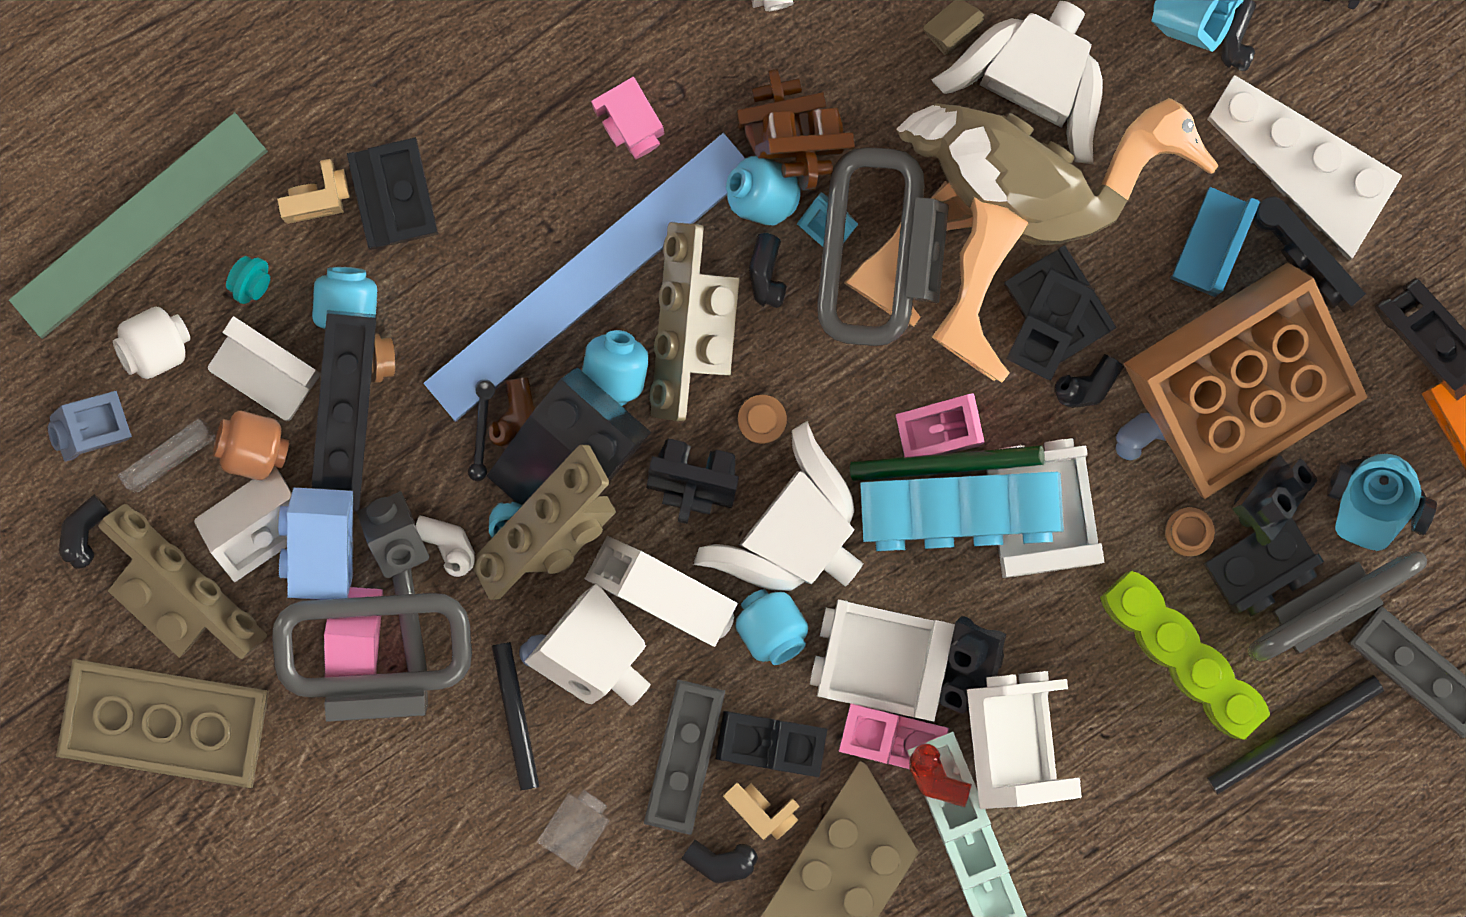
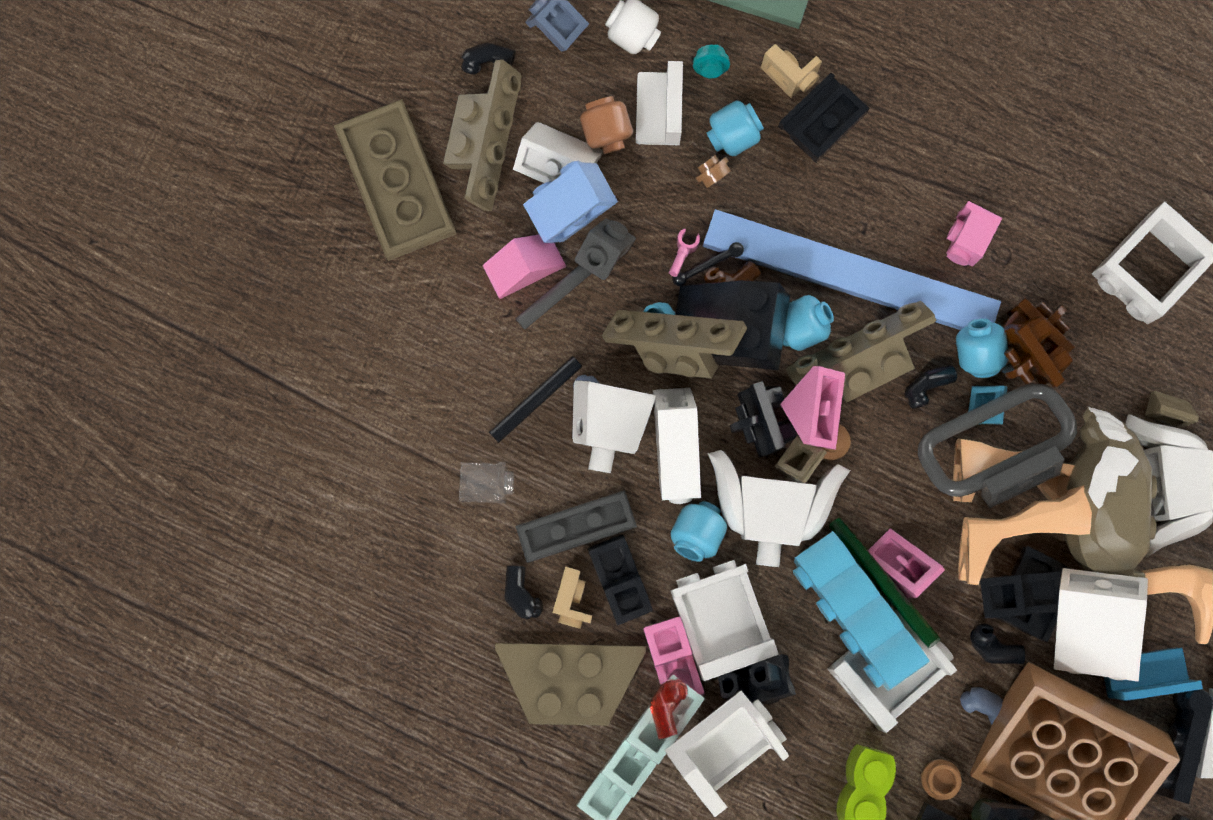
camera: 60 degrees right, 5 degrees down
(167, 456) = (567, 77): clear tile -> none
(344, 402) = (671, 163): black plate -> none
(373, 694) = (496, 300): dark grey bar -> none
(452, 452) = (682, 253): none -> bright pink hand
(452, 543) = (623, 290): white arm -> none
(717, 417) = (816, 407): none -> bright pink slope
(763, 468) = (800, 461): none -> dark tan slope
(1128, 268) = (1100, 624): none -> white panel

